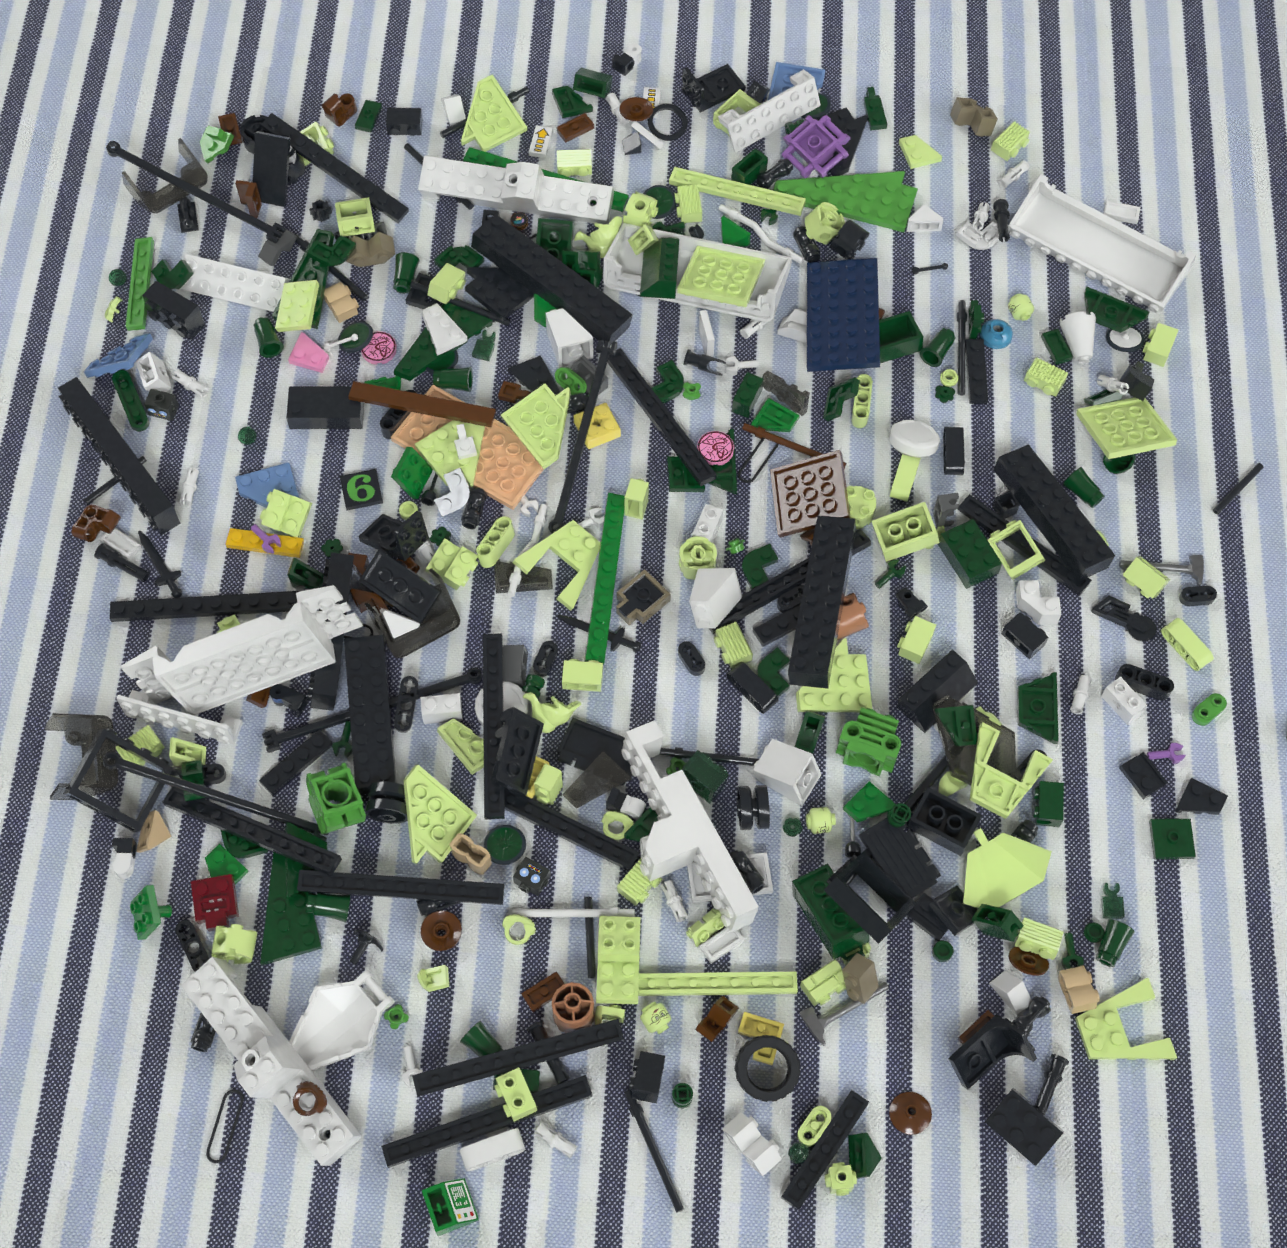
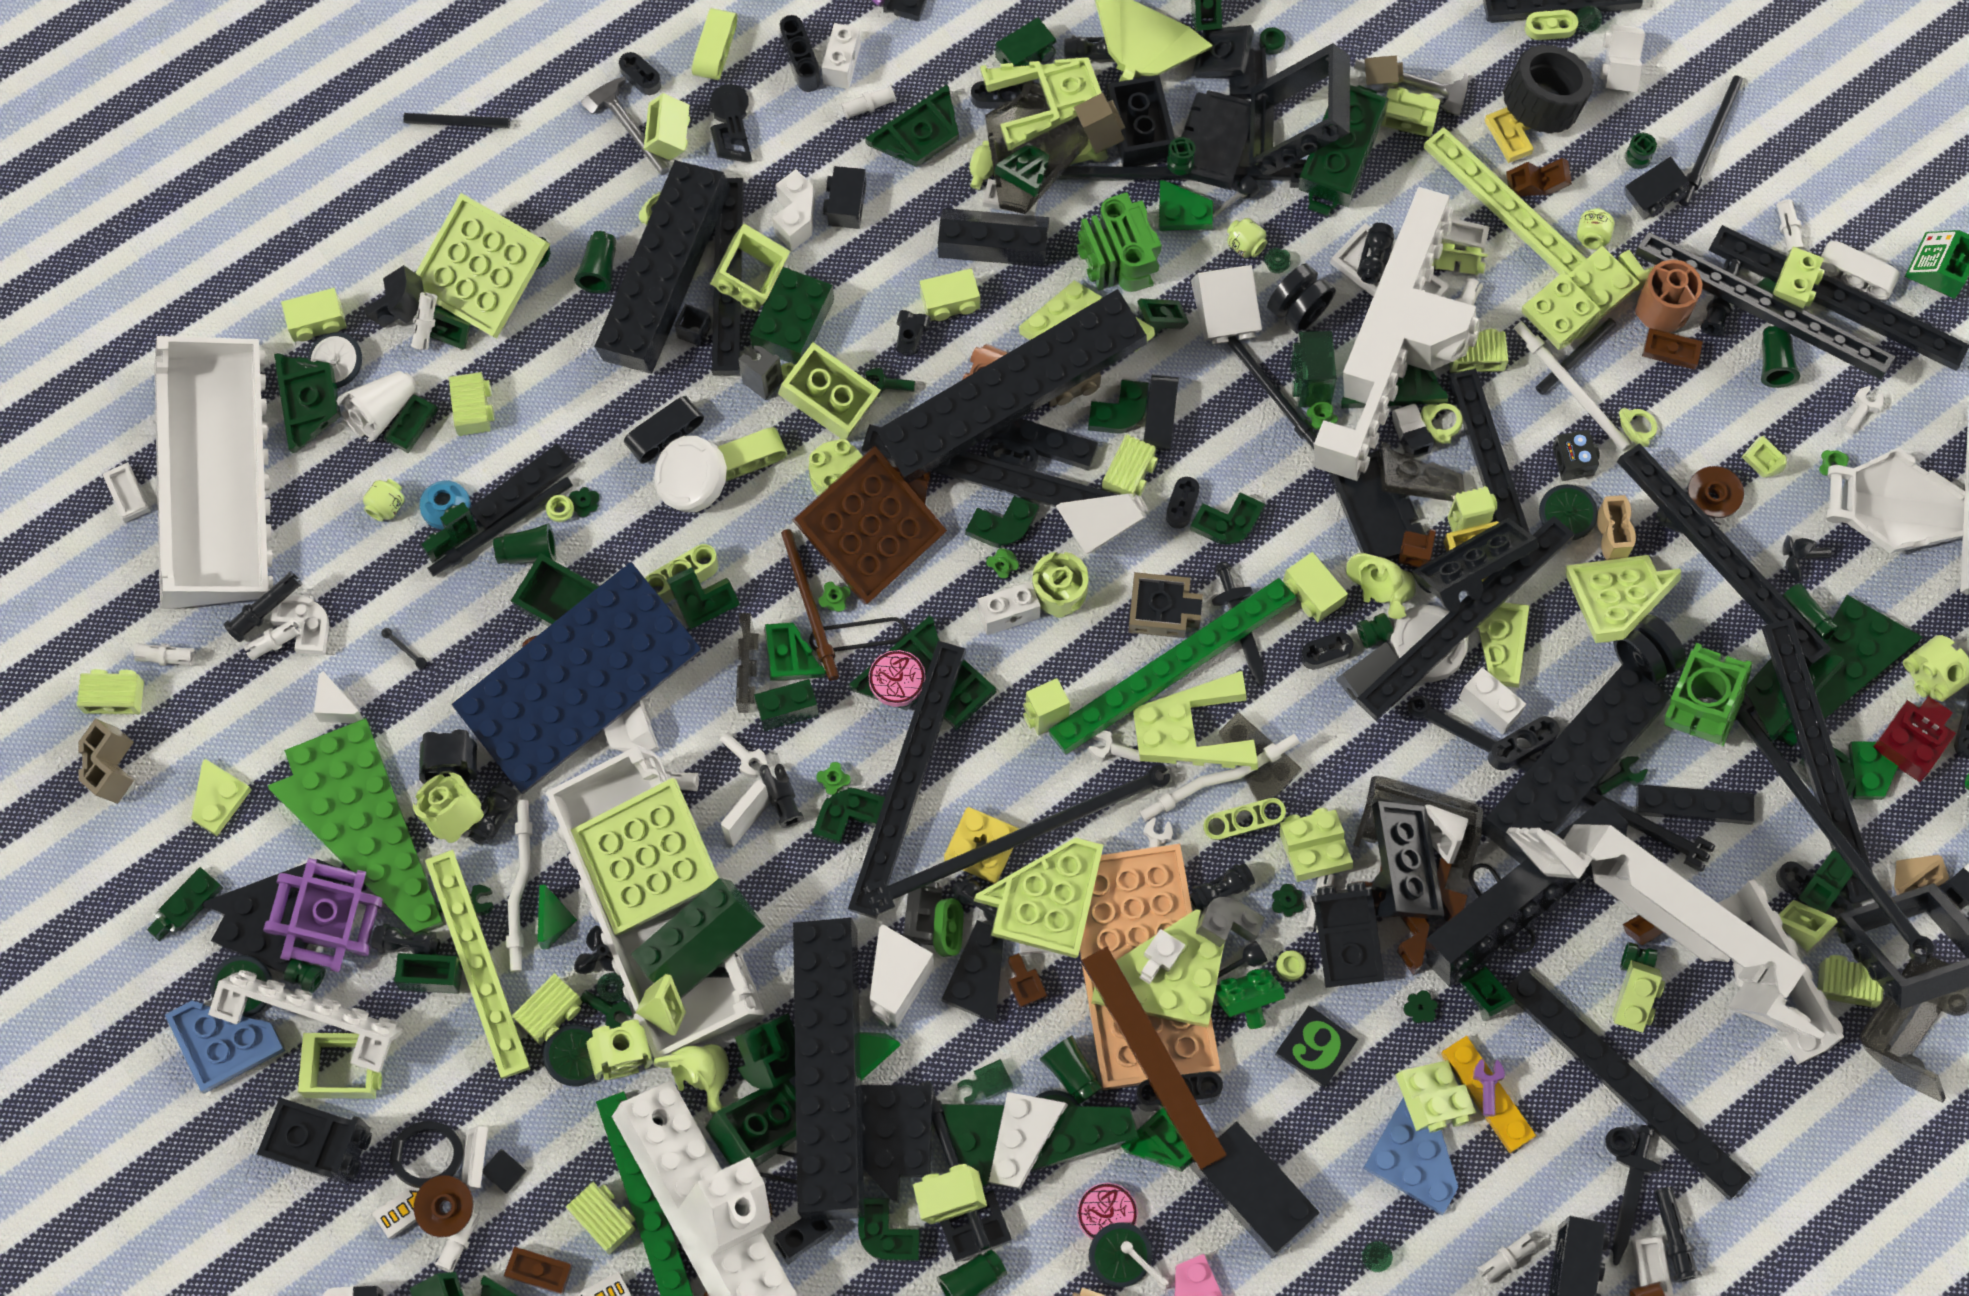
camera: 130 degrees left, 5 degrees up
(184, 573) = (1620, 1133): none -> black plate
(555, 742) = (1416, 548): none -> reddish brown panel
(655, 668) = (1228, 528): none -> dark green plate
(758, 91) = (284, 1062): black leg -> none
(788, 455) = (834, 604): none -> bright green plate
(953, 776) = (1100, 122): none -> dark tan brick

